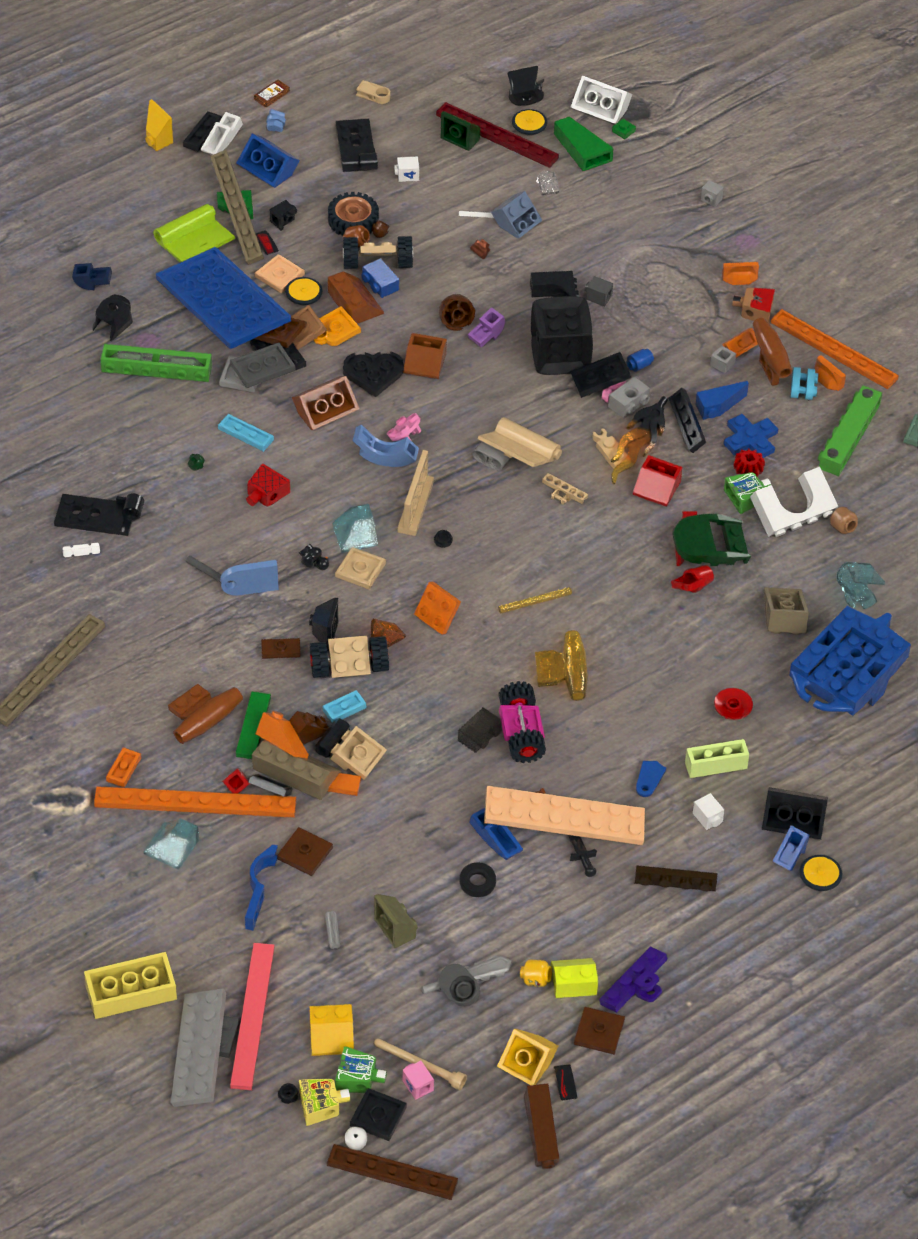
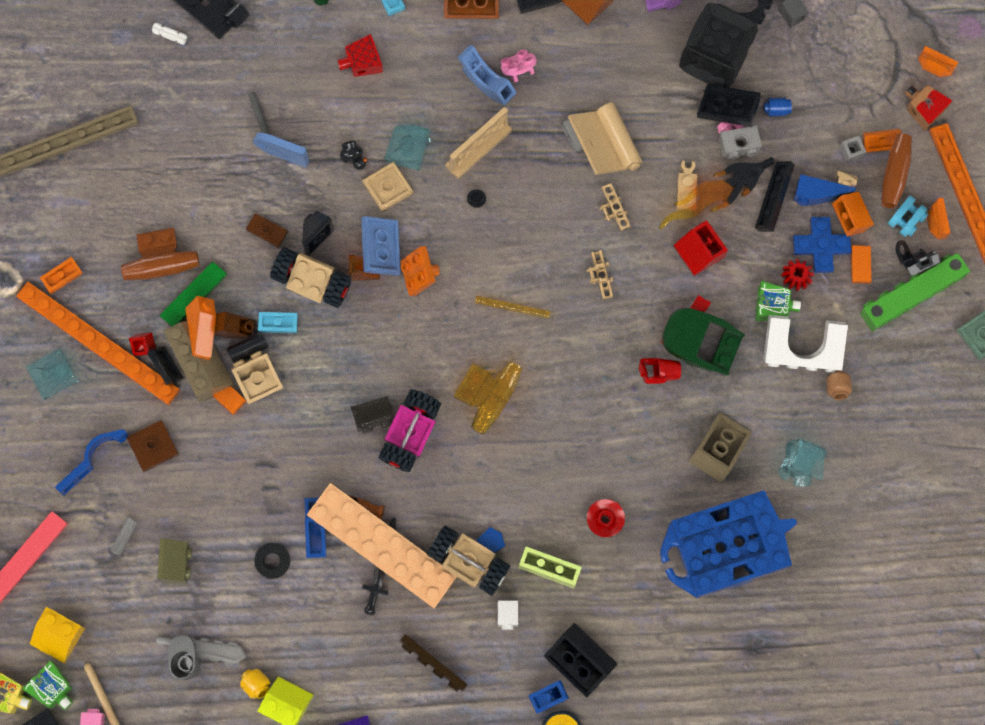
camera: 30 degrees right, 25 degrees up
(390, 608) = (380, 246): none -> medium blue tile
(591, 546) = (600, 280): none -> tan piece
(646, 787) = (468, 560): none -> plate
(735, 377) = (846, 178): none -> tan slope
(759, 400) = (852, 214): none -> orange brick
(793, 434) = (861, 264): none -> orange tile
(836, 407) = (911, 263): none -> black piece

